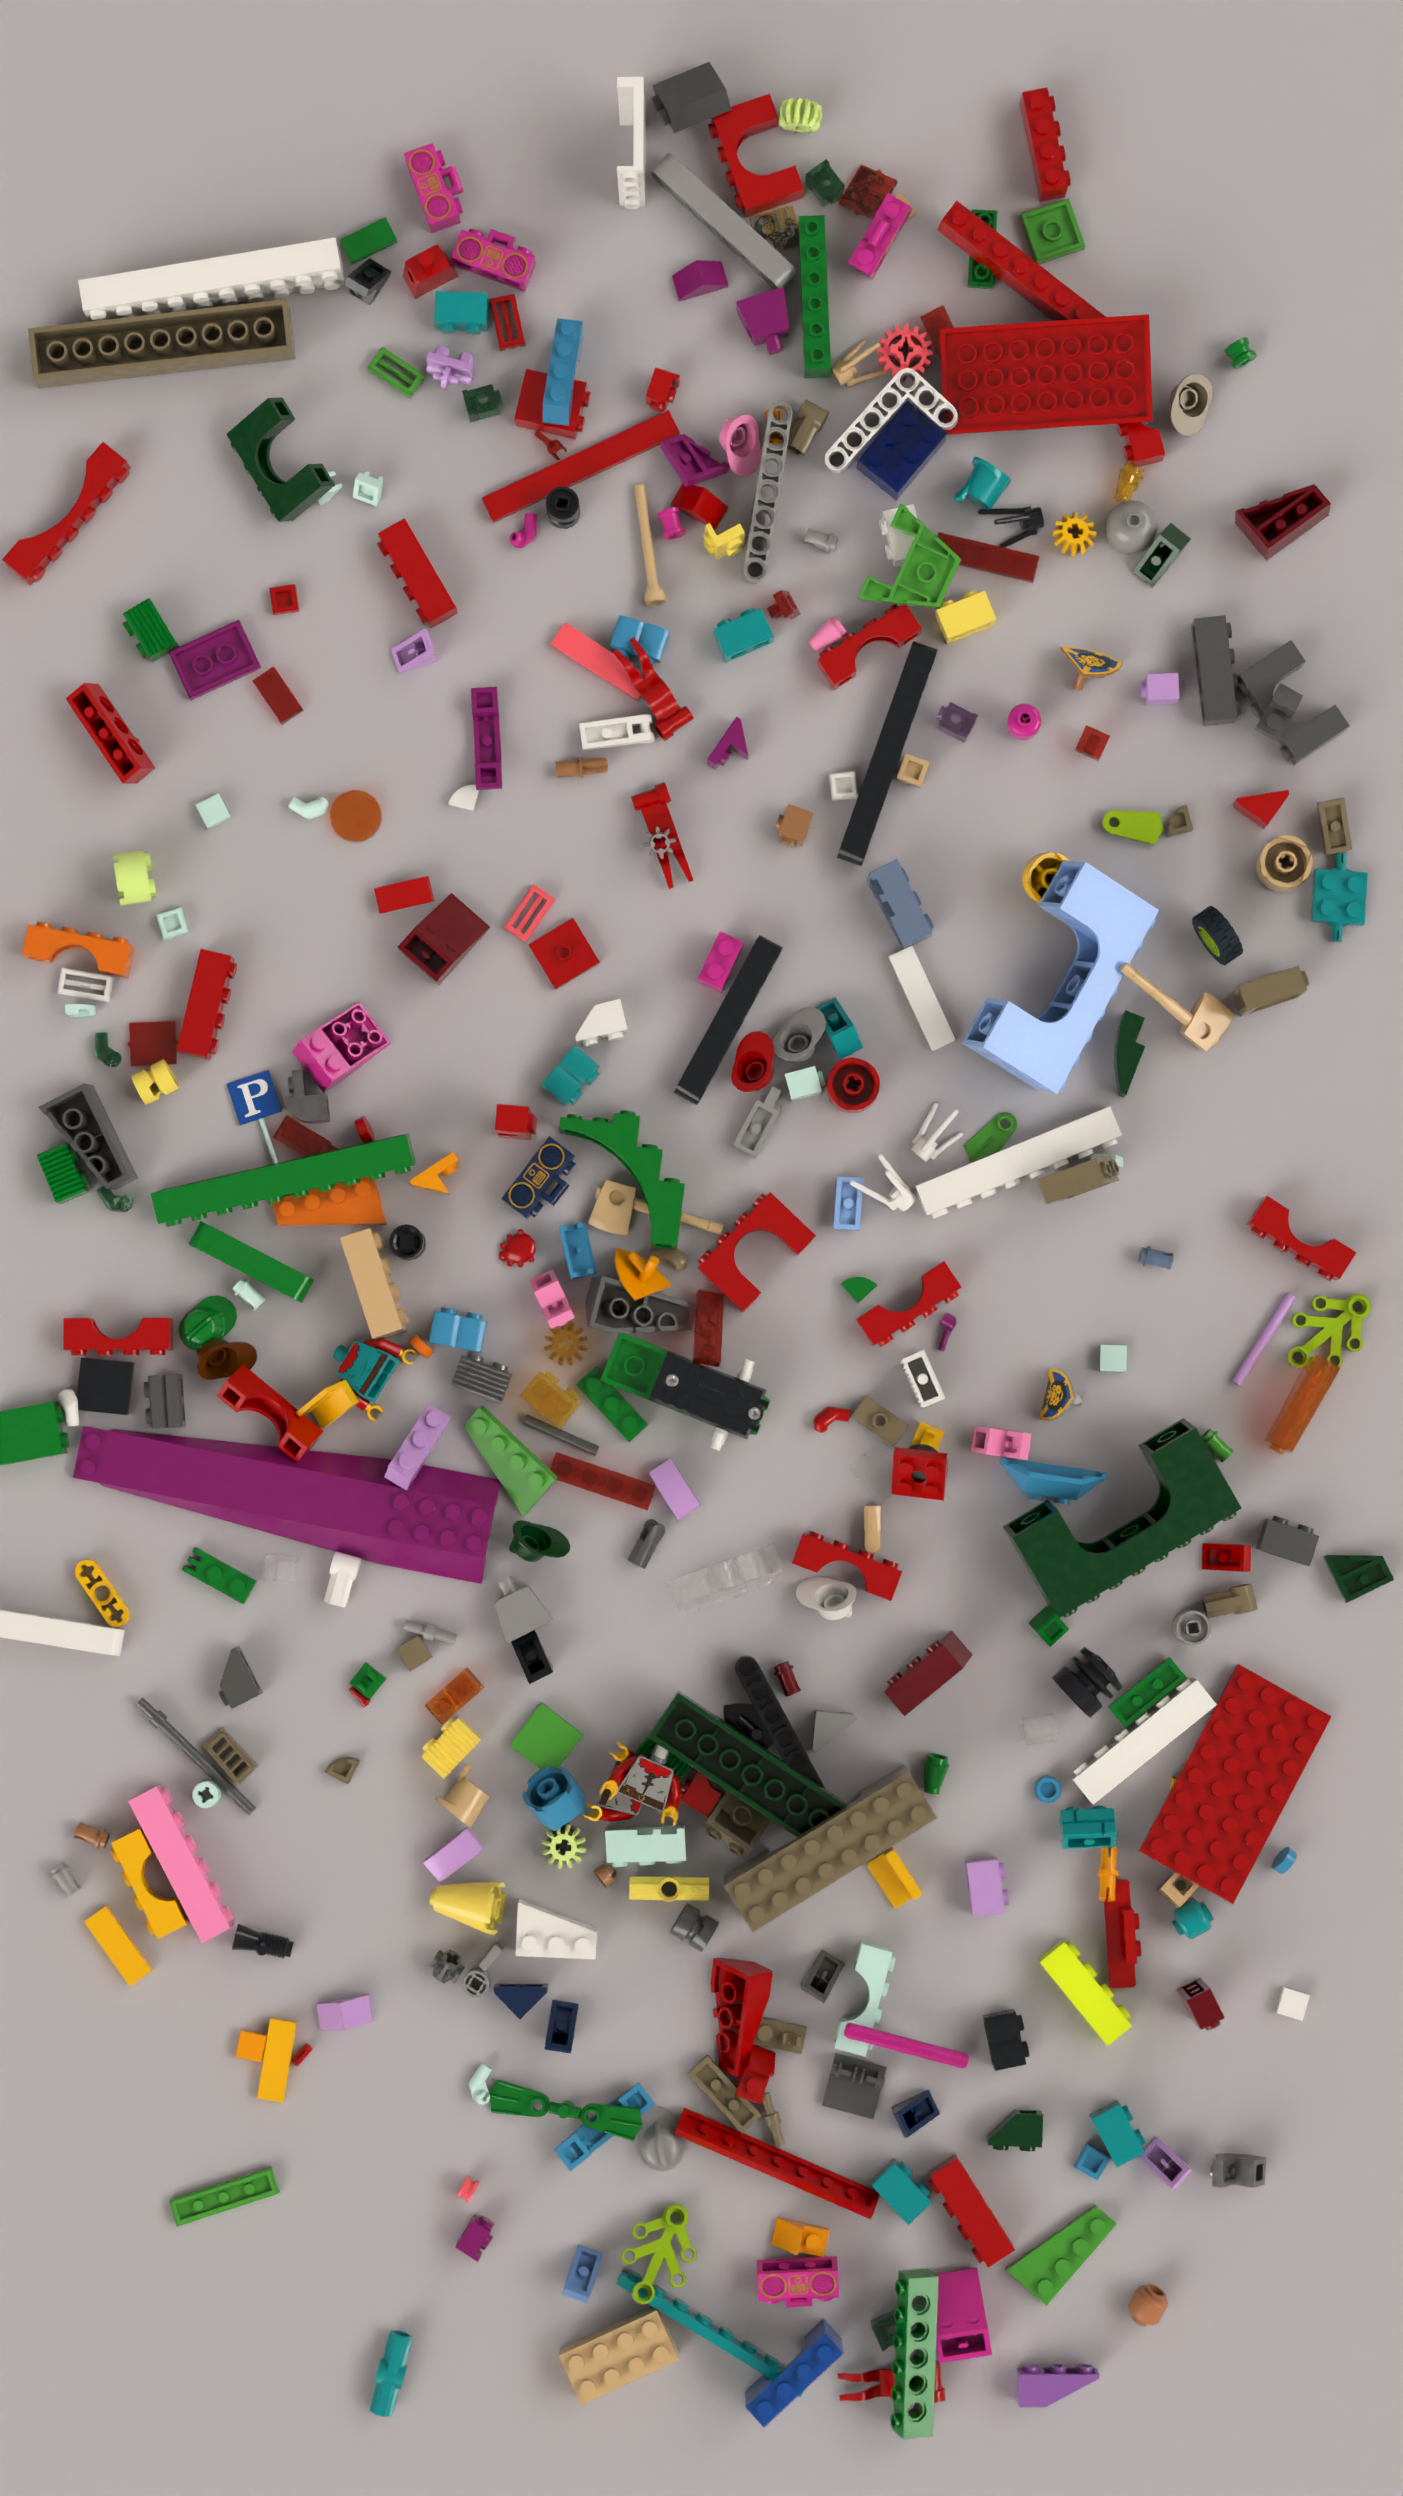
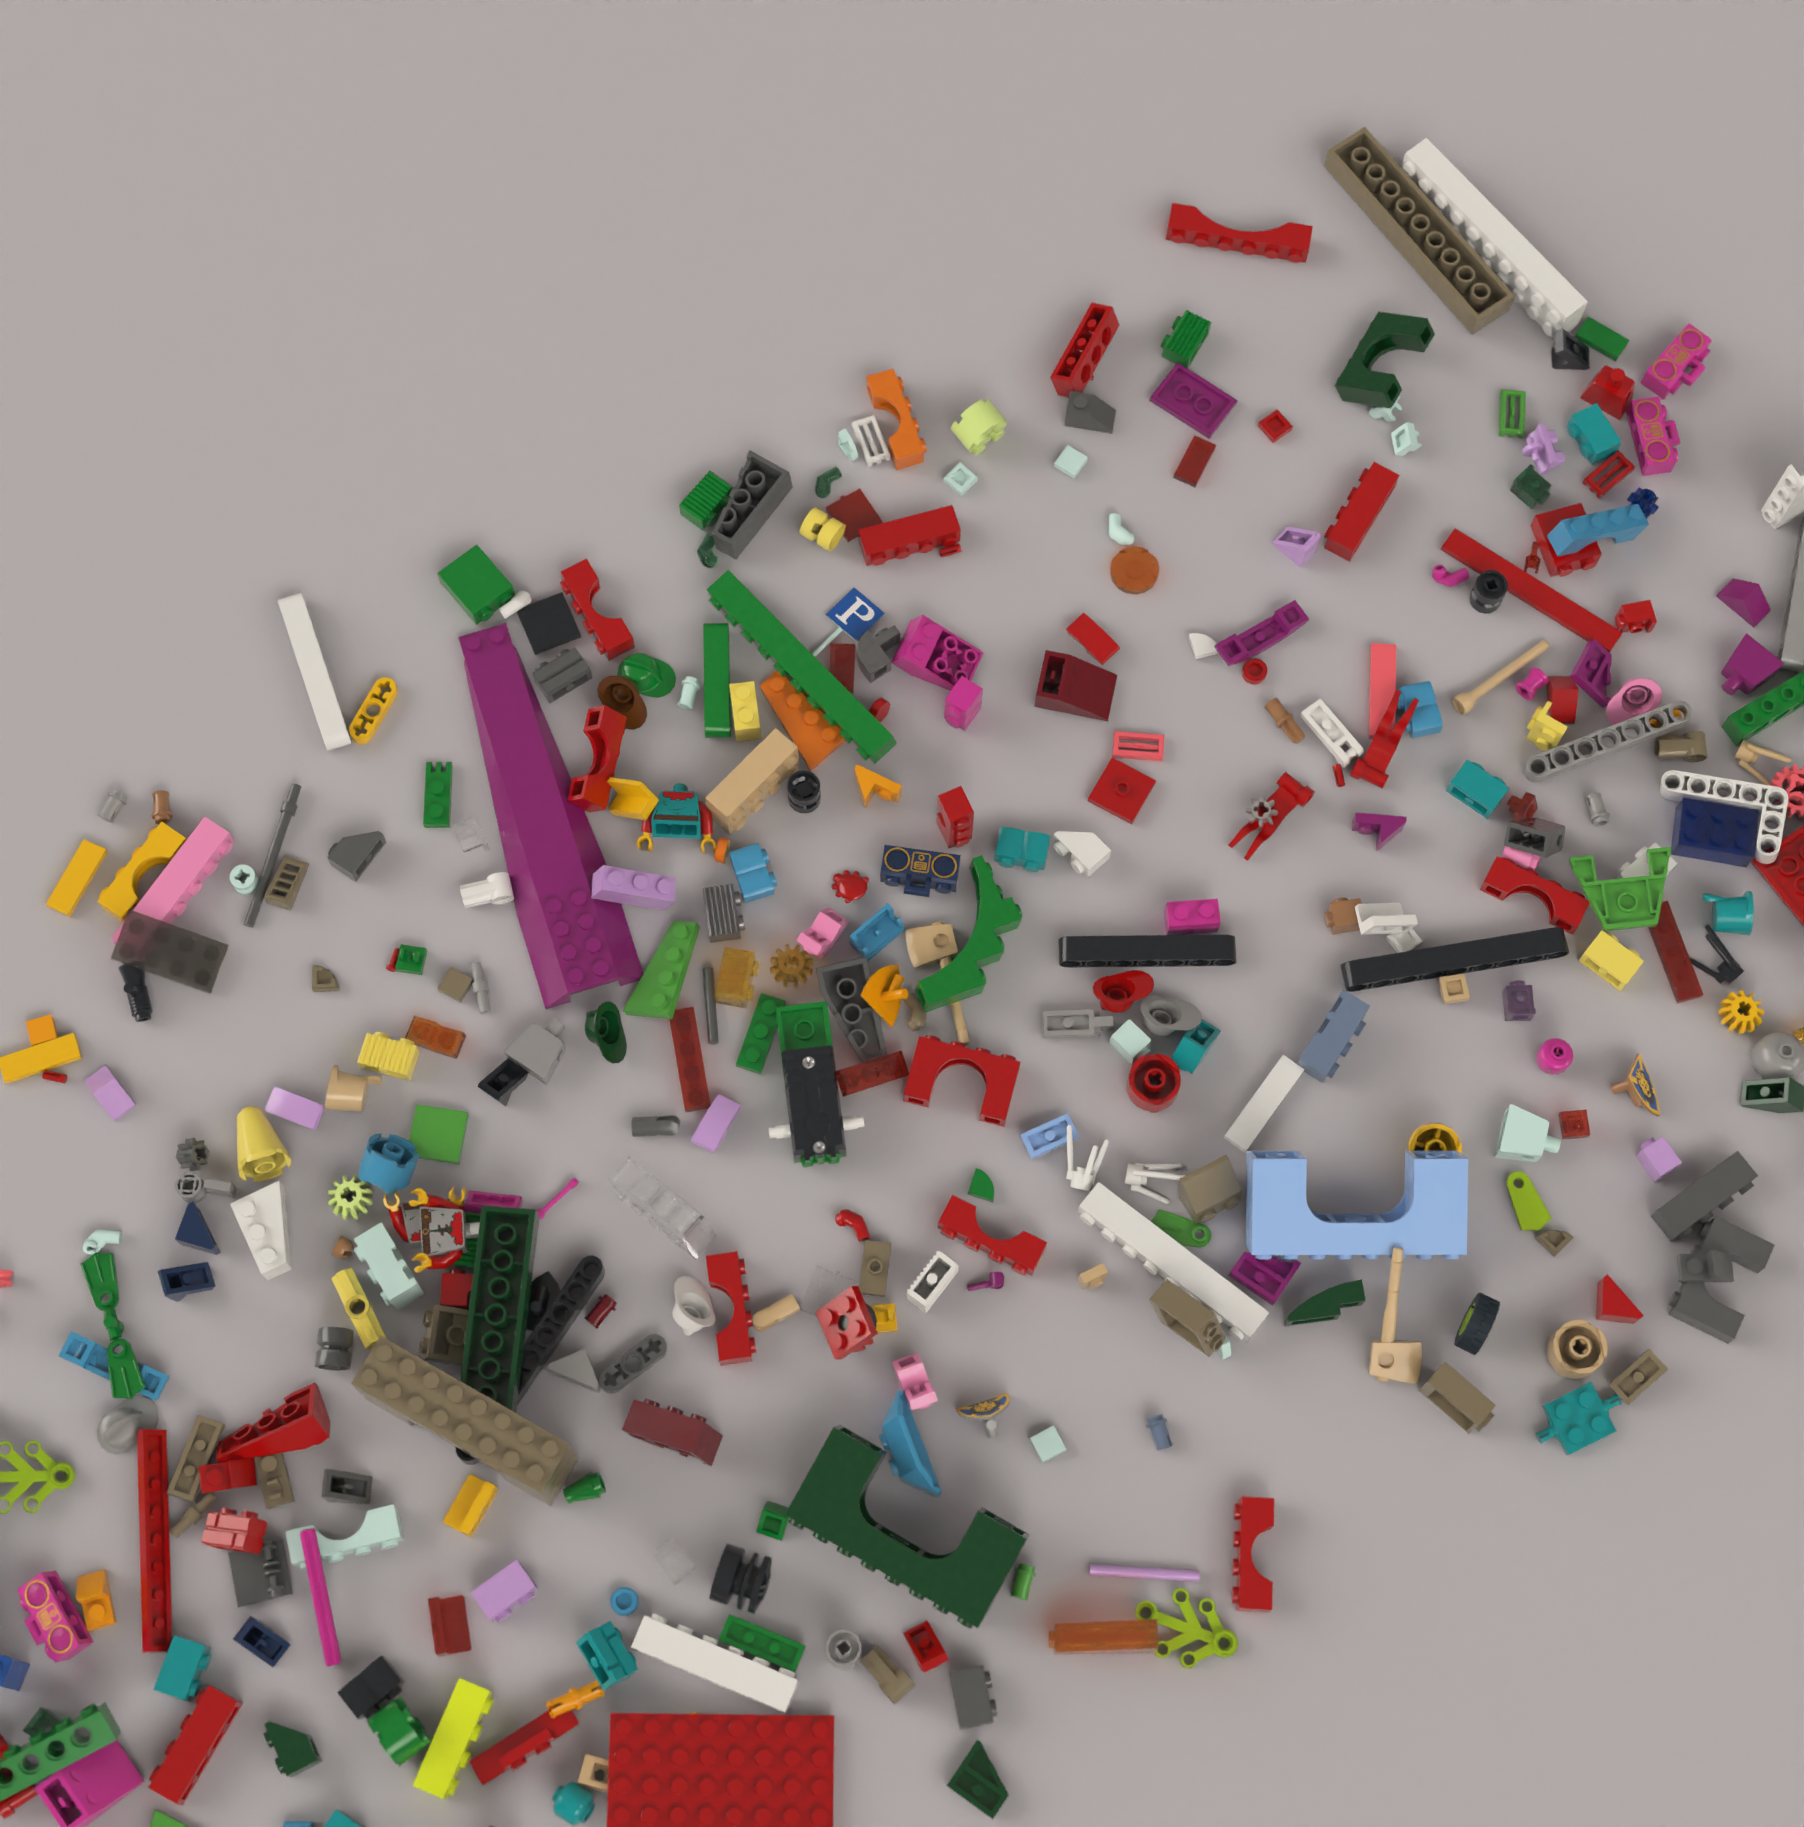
camera: 55 degrees right, 15 degrees down
(175, 765) = (1089, 413): none -> dark grey slope
(240, 973) = (950, 550): none -> red piece
(244, 1896) = (169, 951): none -> clear smoke plate
(297, 1252) = (745, 711): none -> light yellow brick
(405, 1051) = (963, 703): none -> dark pink brick
(516, 765) = (1254, 671): none -> red tile
(555, 308) = (1646, 499): none -> clear blue gear
(639, 1723) = (477, 1199): none -> dark pink plate
(659, 750) = (1339, 778): none -> red piece
(669, 1686) = (573, 1183): none -> dark pink hinge
(810, 2092) = (234, 1531): none -> brick
(818, 795) = (1383, 918): none -> white panel
(819, 613) = (1543, 838): none -> dark grey torso
(838, 1669) = (613, 1371): none -> dark grey beam
(977, 1093) = (1210, 1190): none -> dark tan slope
(987, 1947) = (449, 1625): none -> clear red panel
(994, 1237) = (1093, 1277): none -> tan plate
(1056, 2035) = (399, 1731): none -> green brick
(1077, 791) = (1524, 1136): none -> light aqua torso
(1077, 1092) = (1264, 1276): none -> magenta wing

